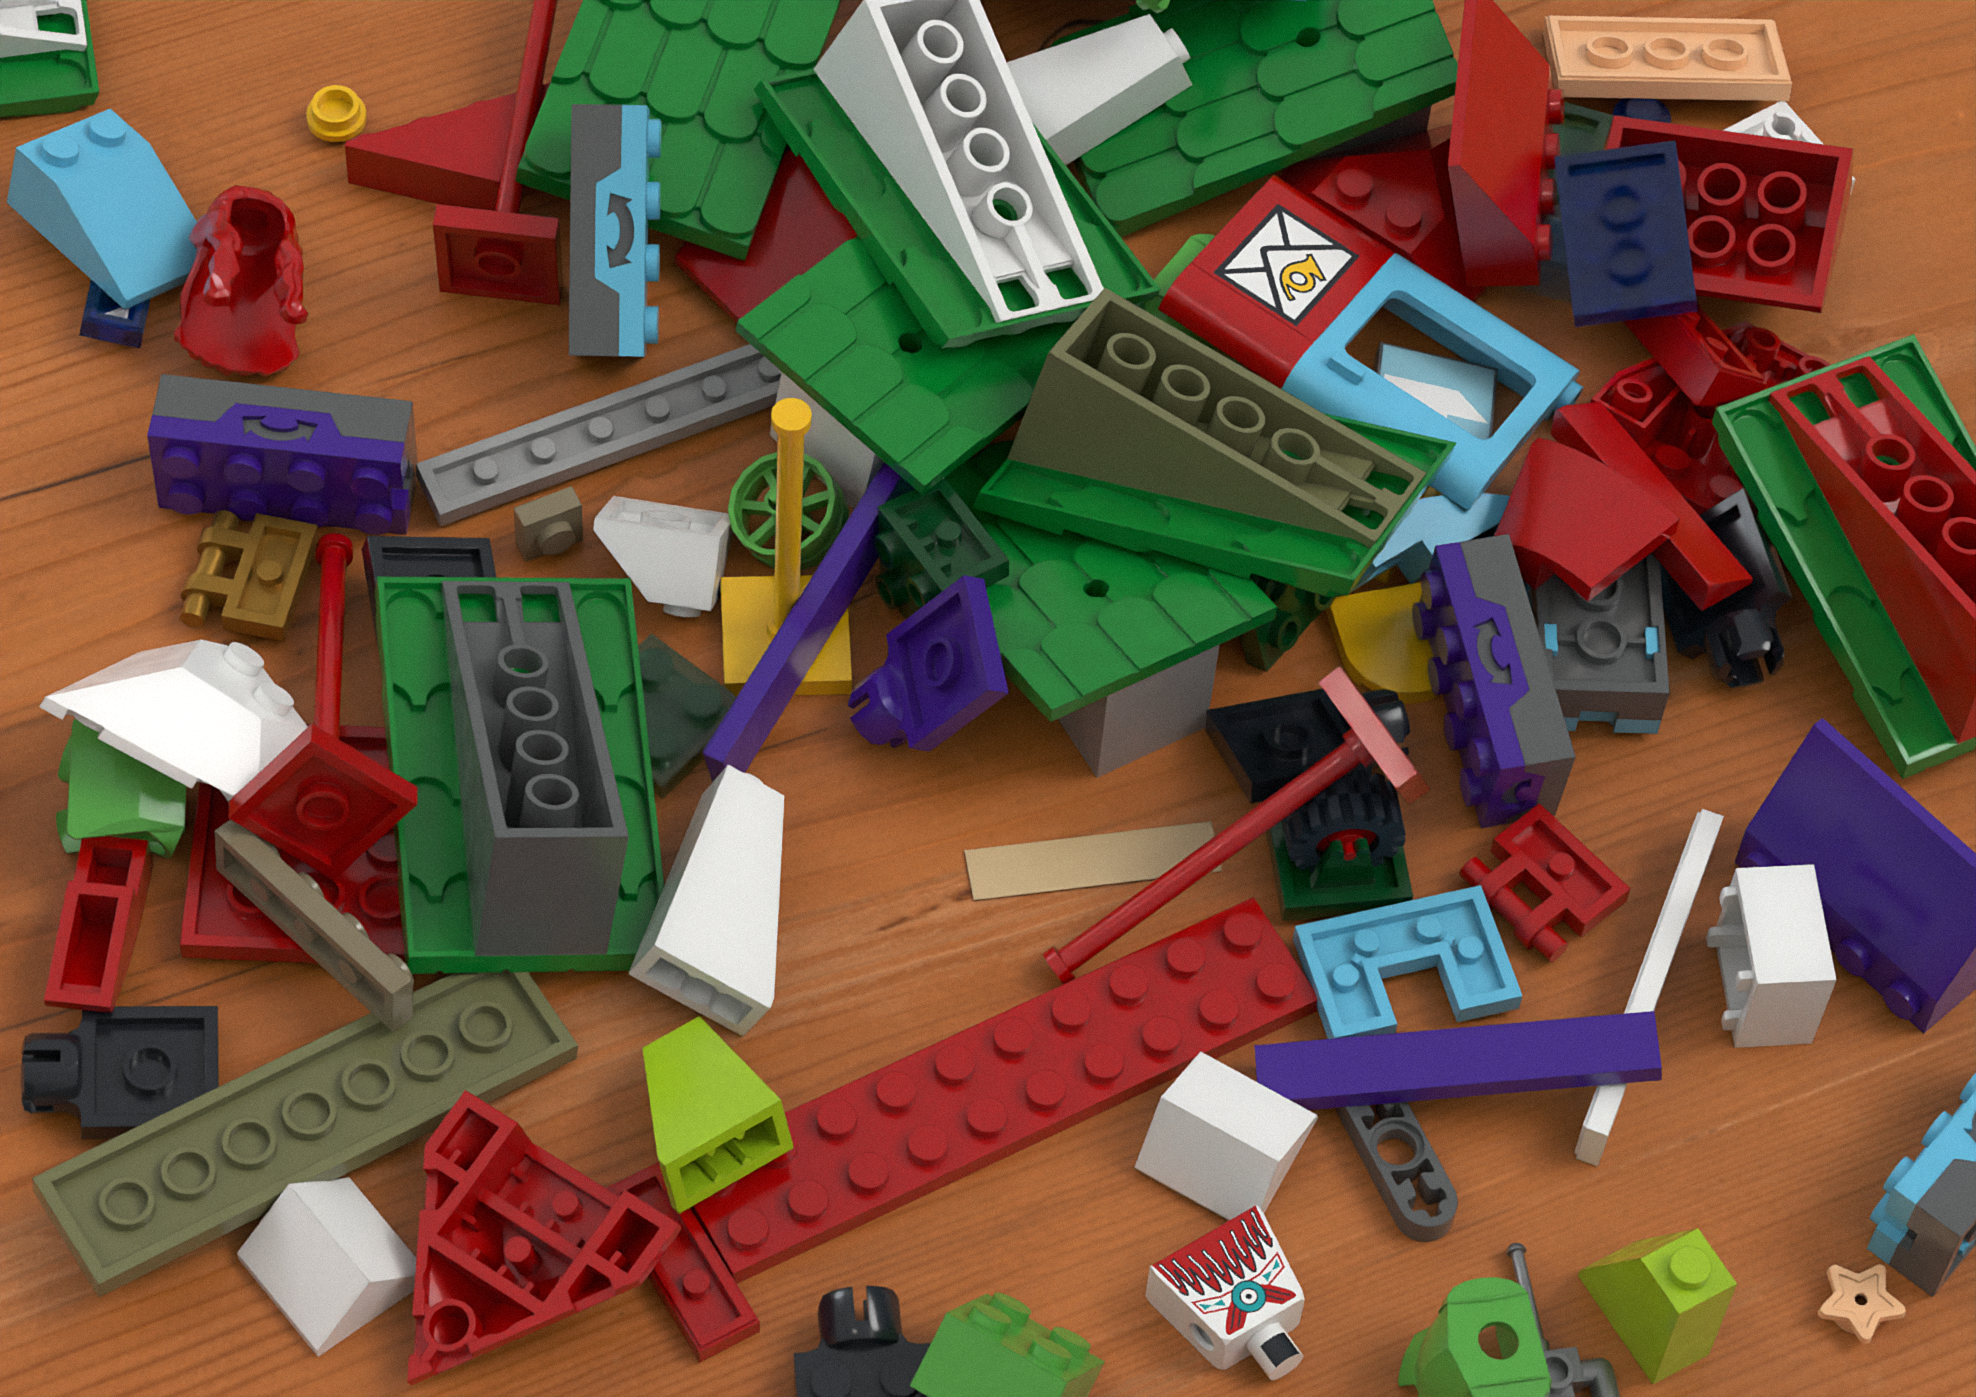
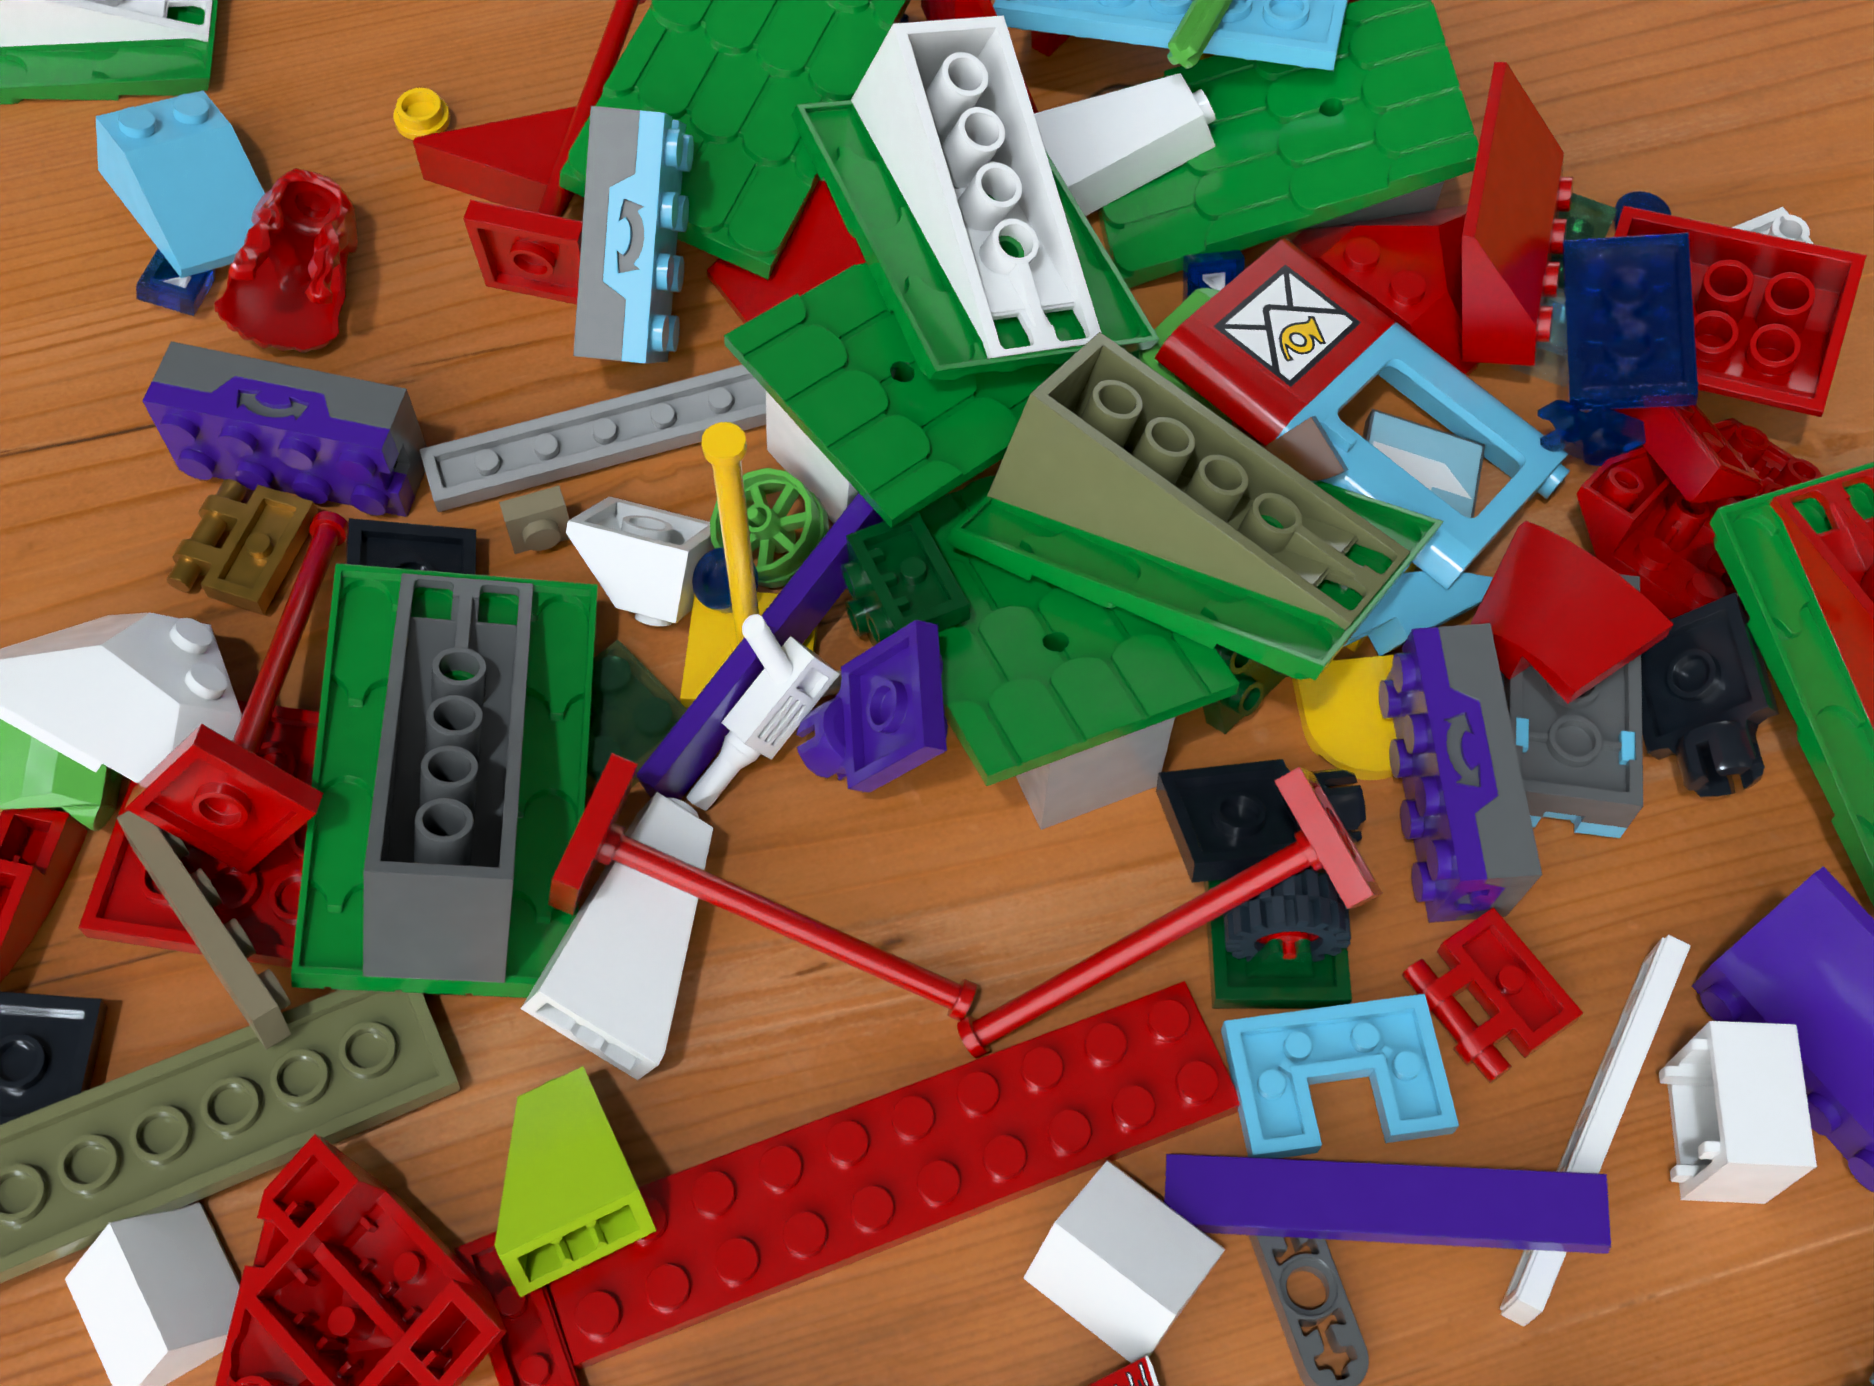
camera: 10 degrees right, 5 degrees up
(688, 808) = (603, 840): none -> red tile
(750, 564) = (711, 581): none -> clear blue tile
(821, 680) = (769, 709): none -> white piece
(1082, 860) = (1020, 919): tan sticker -> none
(1201, 215) = (1211, 270): none -> clear blue tile
(1320, 386) = (1308, 451): none -> tile
(1599, 349) = (1592, 434): none -> clear blue plate
(1666, 58) = (1673, 159): light nougat tile -> none
(1694, 552) = (1682, 660): red slope -> none

